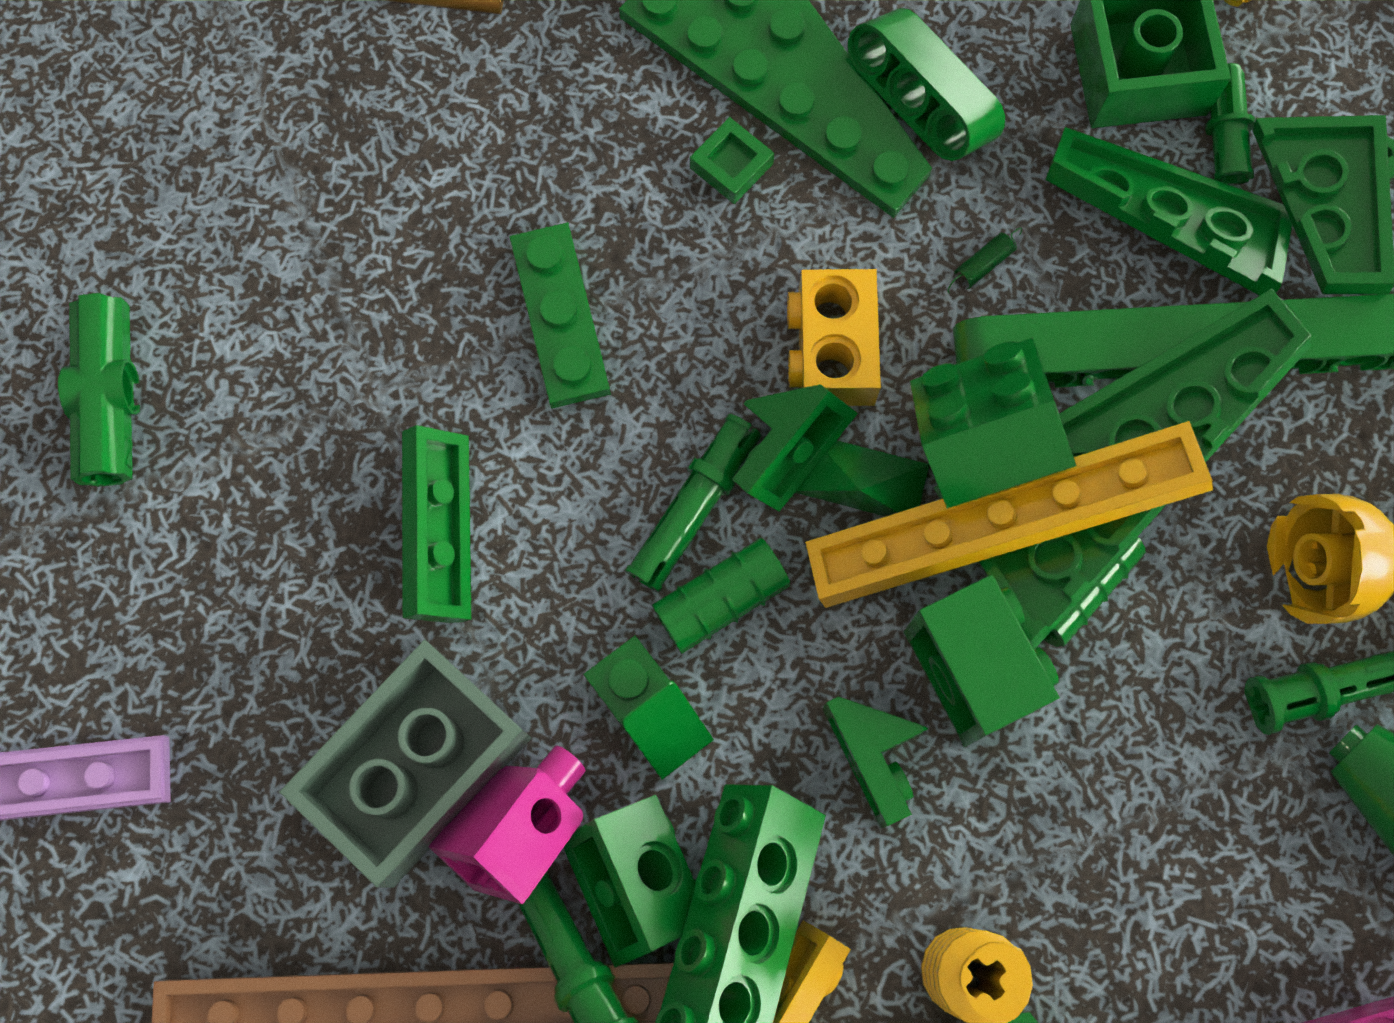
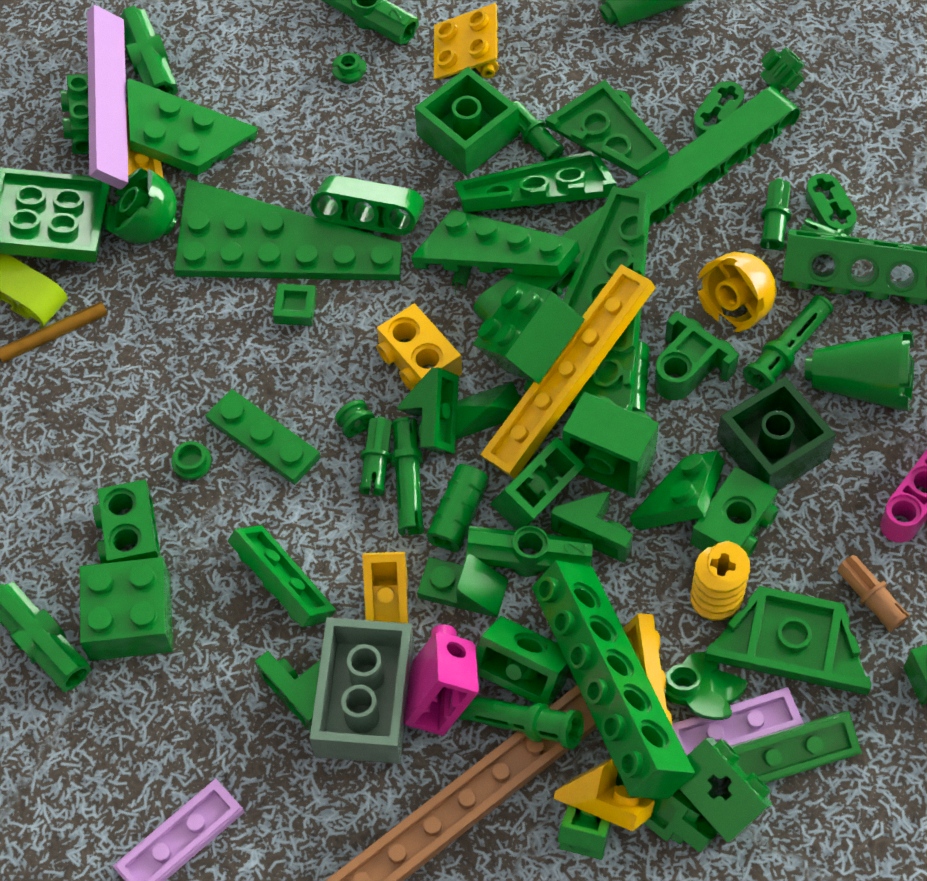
camera: 35 degrees left, 15 degrees down
(218, 431) = (125, 609): none -> green brick
(319, 329) = (134, 527): none -> green brick
(328, 666) = (294, 691): none -> green slope
(449, 286) = (191, 460): none -> green plate
(535, 653) = (385, 587): none -> yellow slope
(675, 444) = (376, 456): none -> green axle
(686, 373) = (353, 418): none -> green bush
(797, 755) = (504, 548): none -> green piece
(844, 645) = (537, 484): none -> green brick
(1029, 797) = (682, 493): none -> green wing
(1049, 259) = (494, 245): none -> green wing
(1114, 882) = (738, 497): none -> green brick
(1195, 612) = (692, 356): none -> green pin
(1220, 814) = (776, 435): none -> dark green brick

